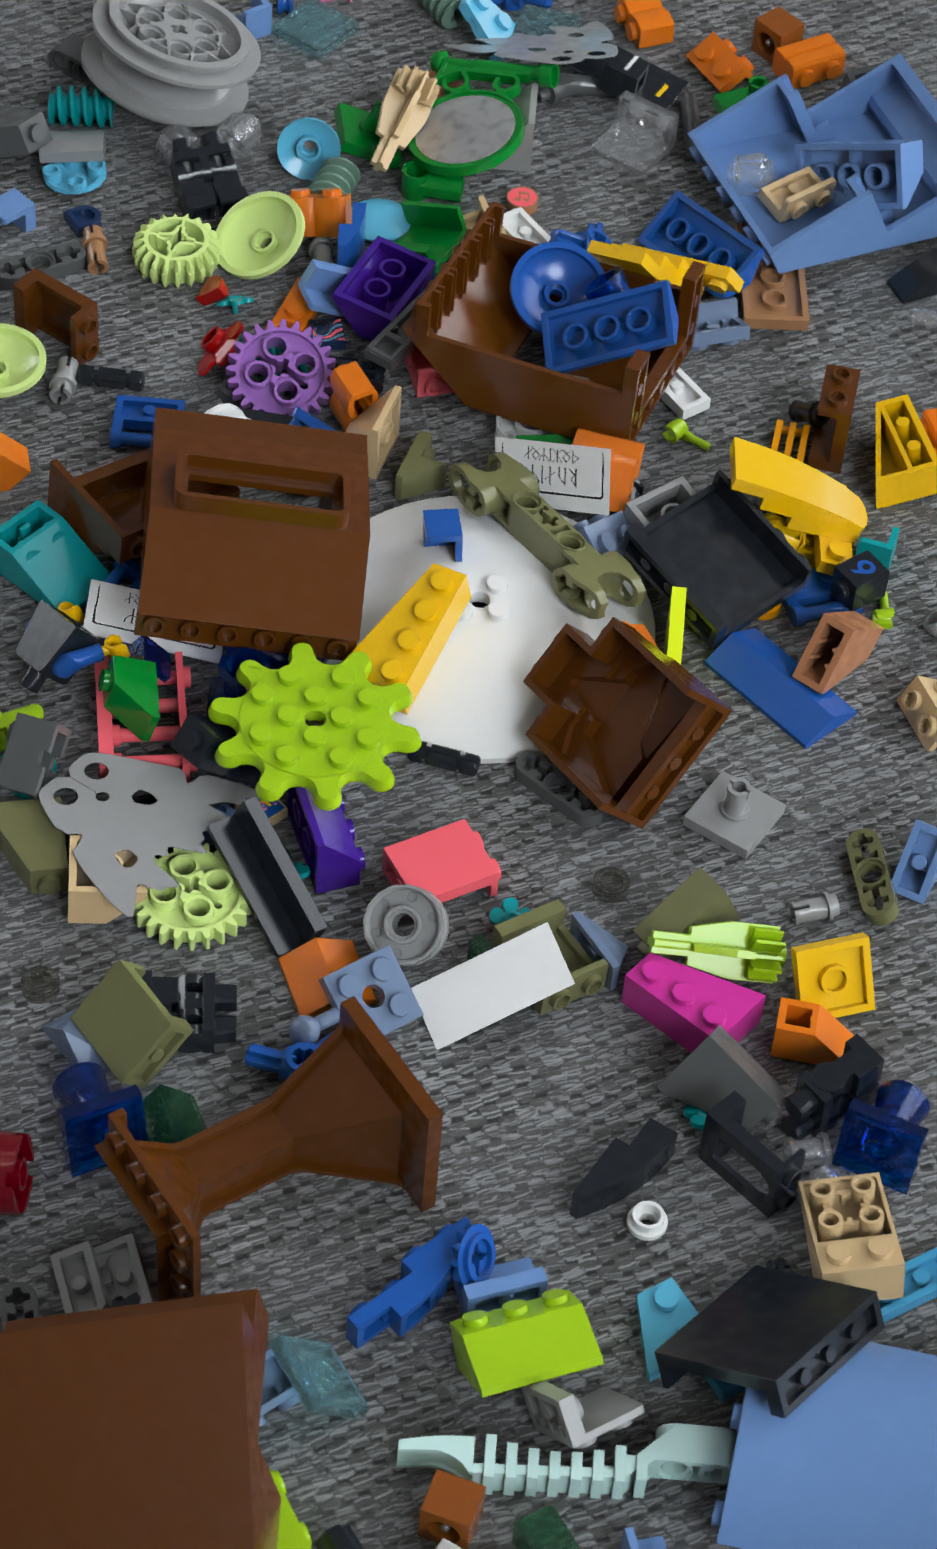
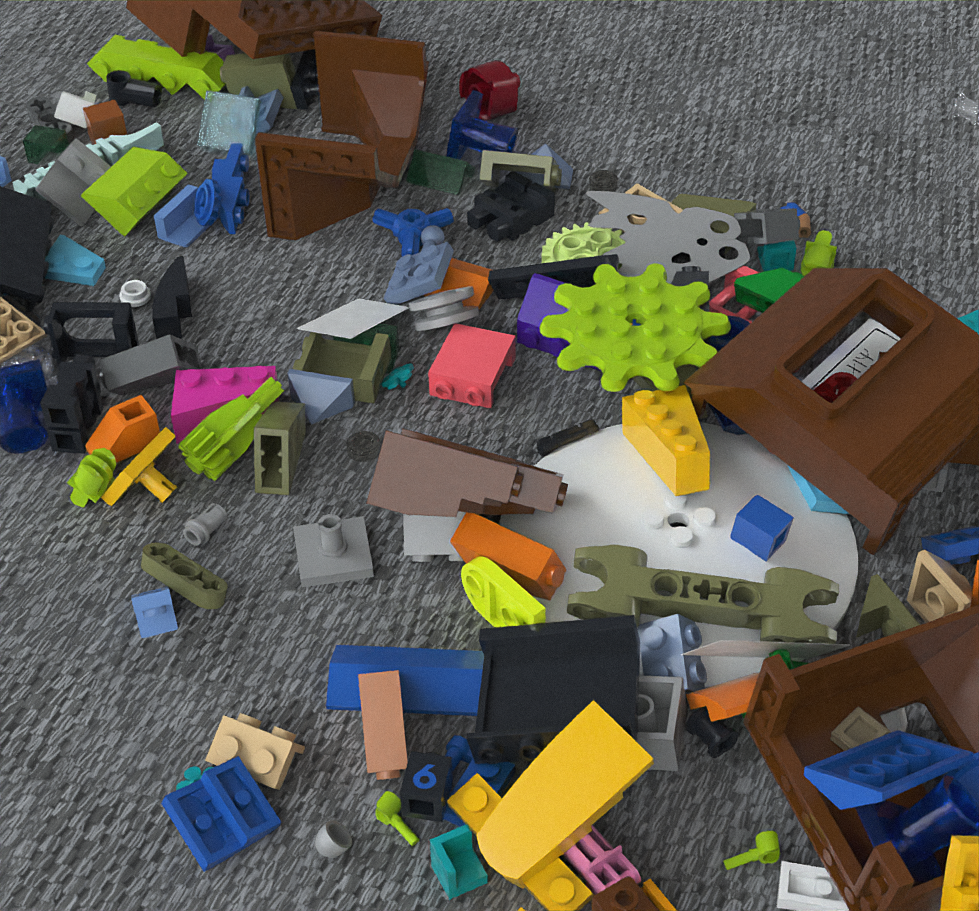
camera: 140 degrees right, 5 degrees down
(879, 1001) = (92, 477): none -> lime arm

